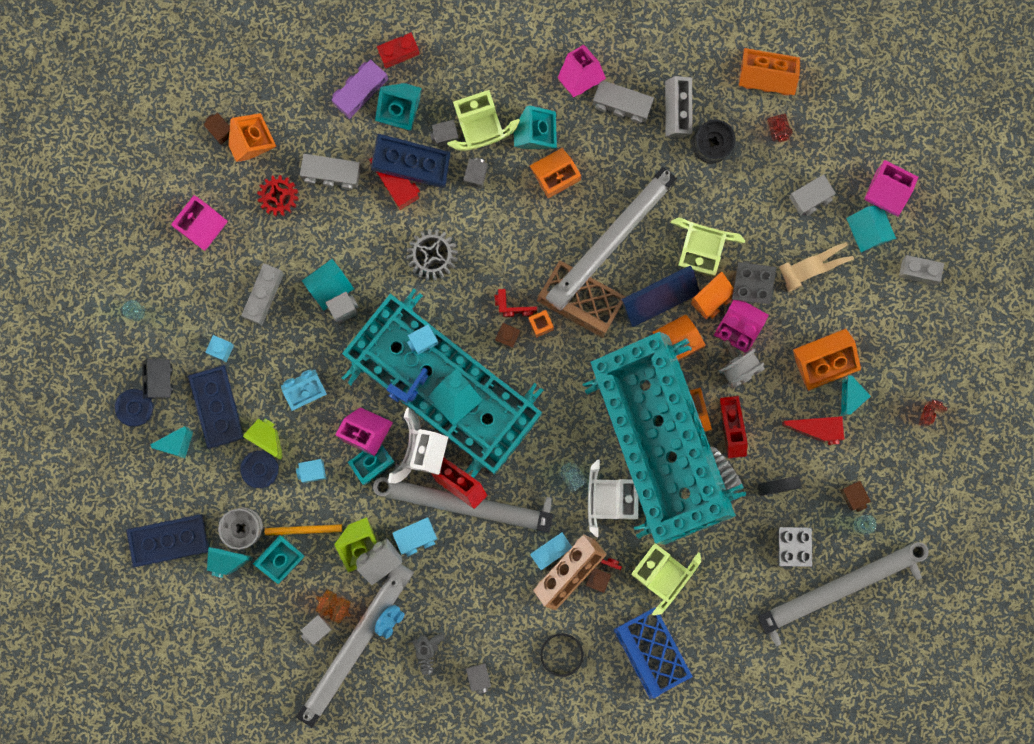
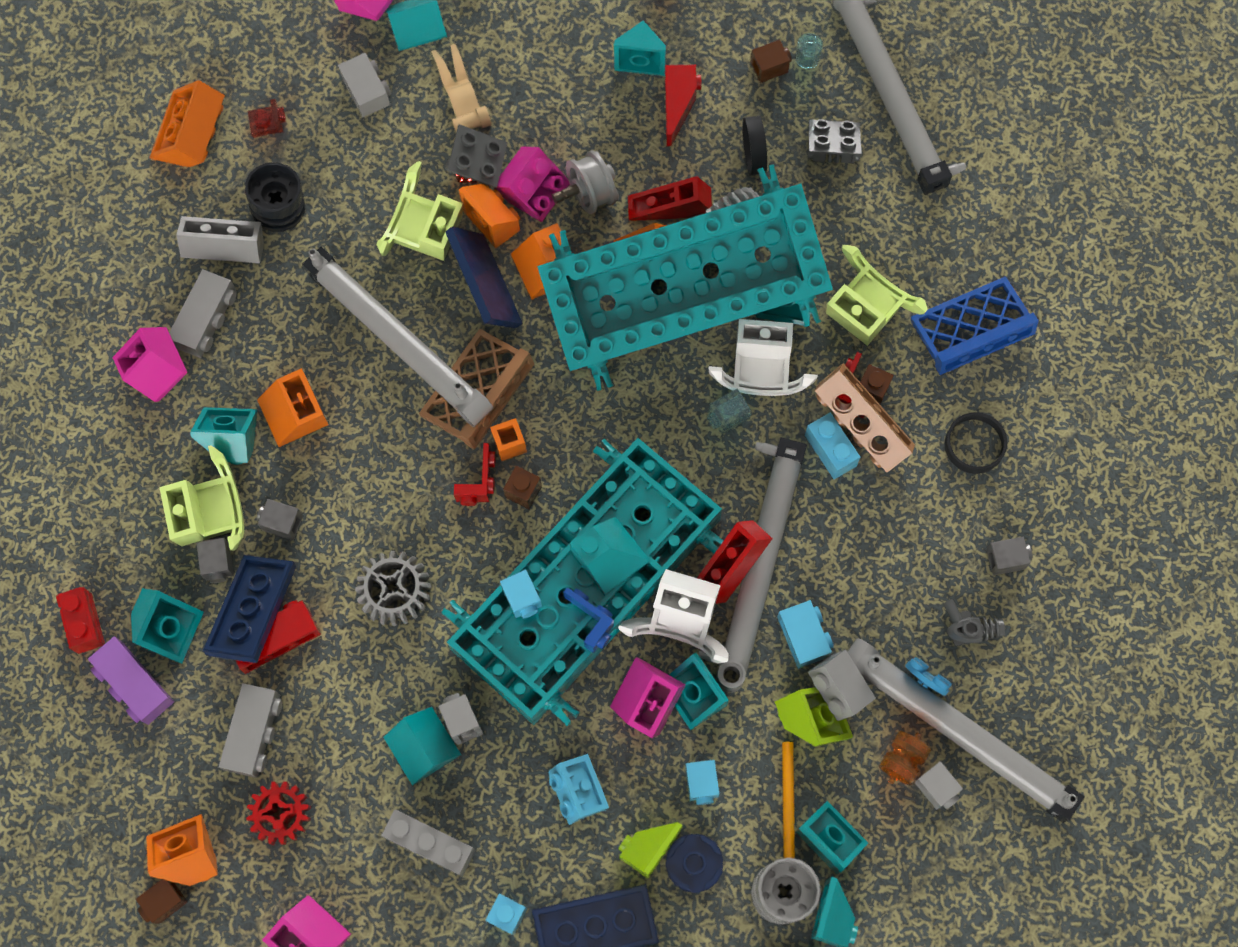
camera: 90 degrees left, 10 degrees down
(827, 359) = (586, 81): orange slope -> none

